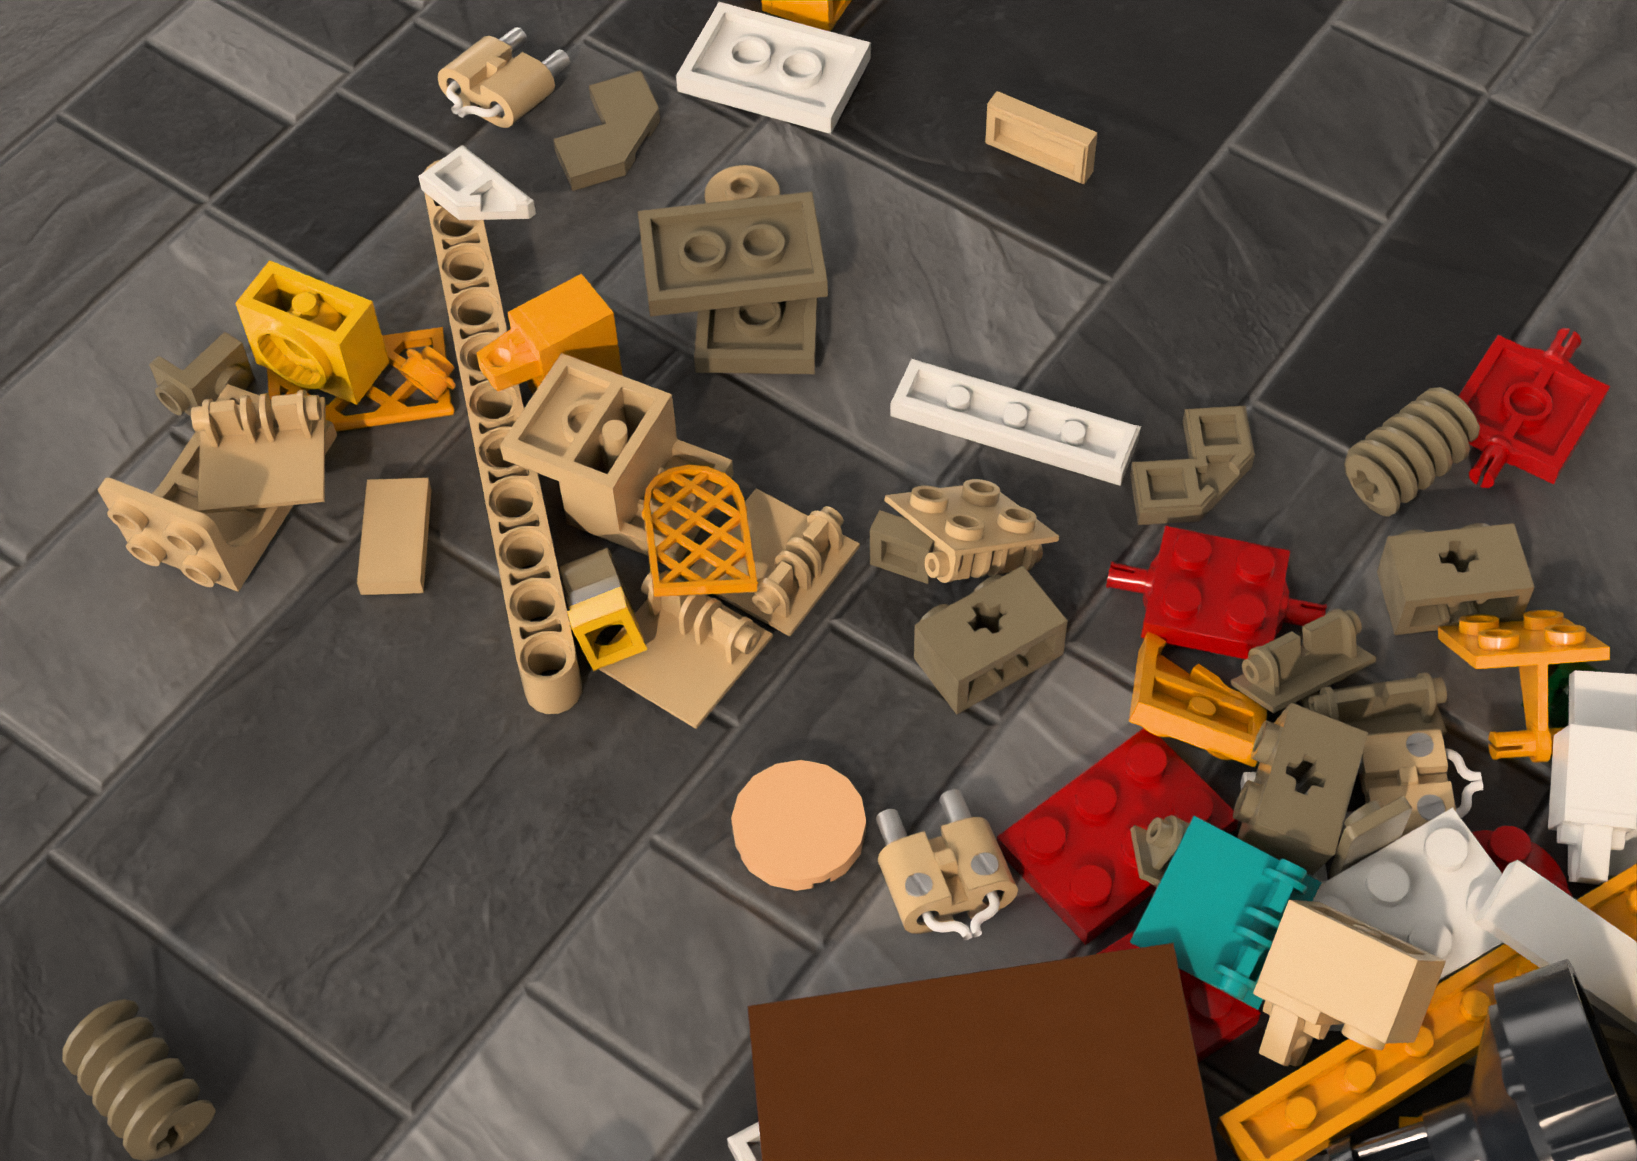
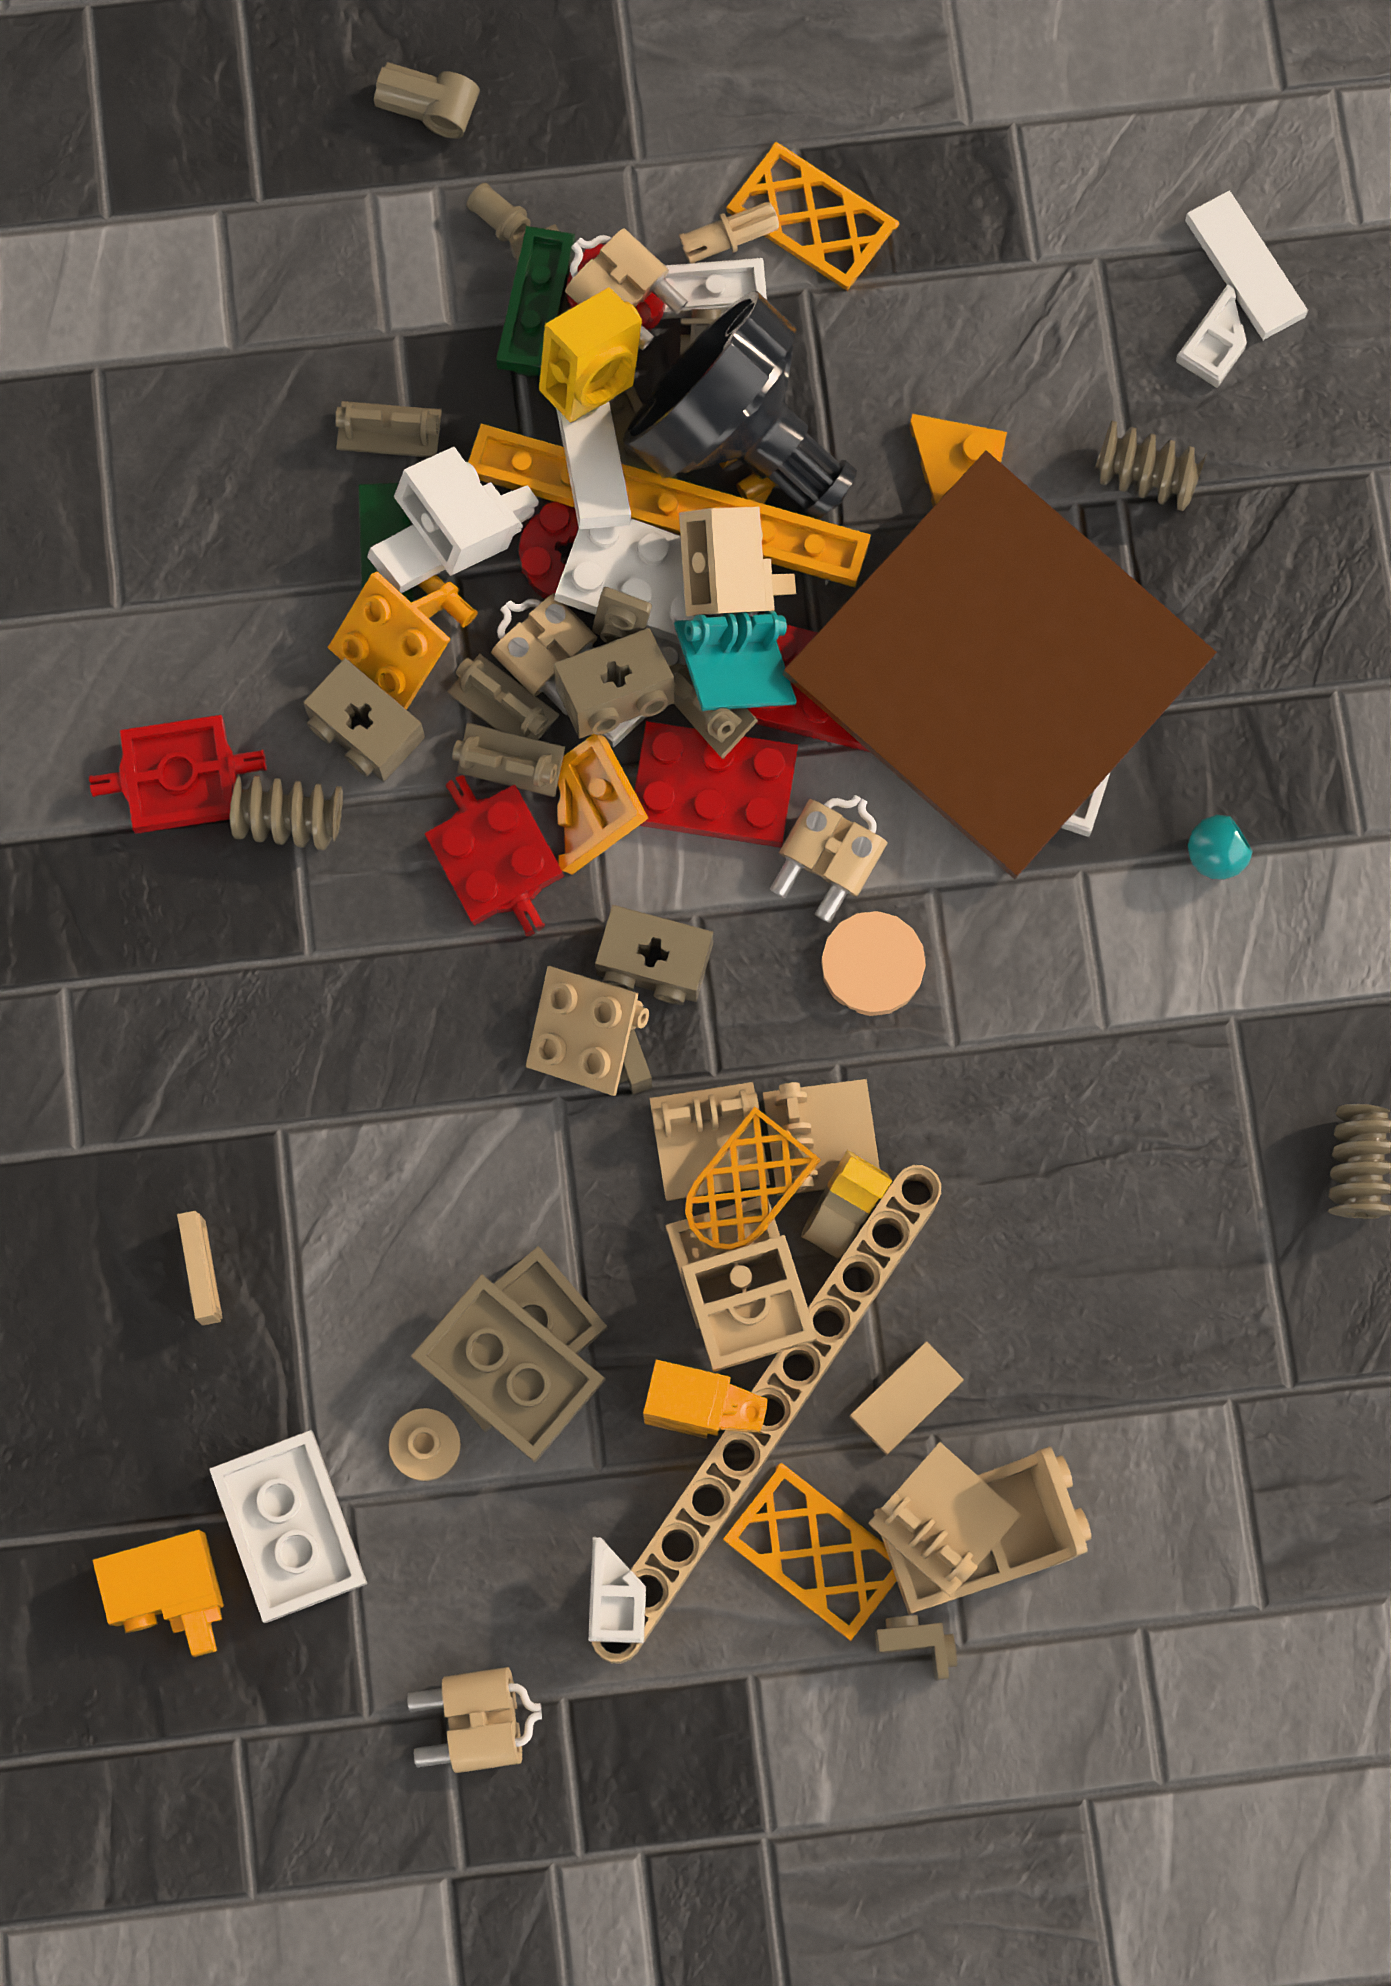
camera: 135 degrees left, 20 degrees up
(313, 332) = (834, 1578): yellow brick -> none
(428, 371) = (778, 1491): light orange plate -> none
(609, 149) = (426, 1592): dark tan tile -> none
(1015, 421) = (463, 1088): white tile -> none
(1189, 488) = (379, 937): dark tan tile -> none

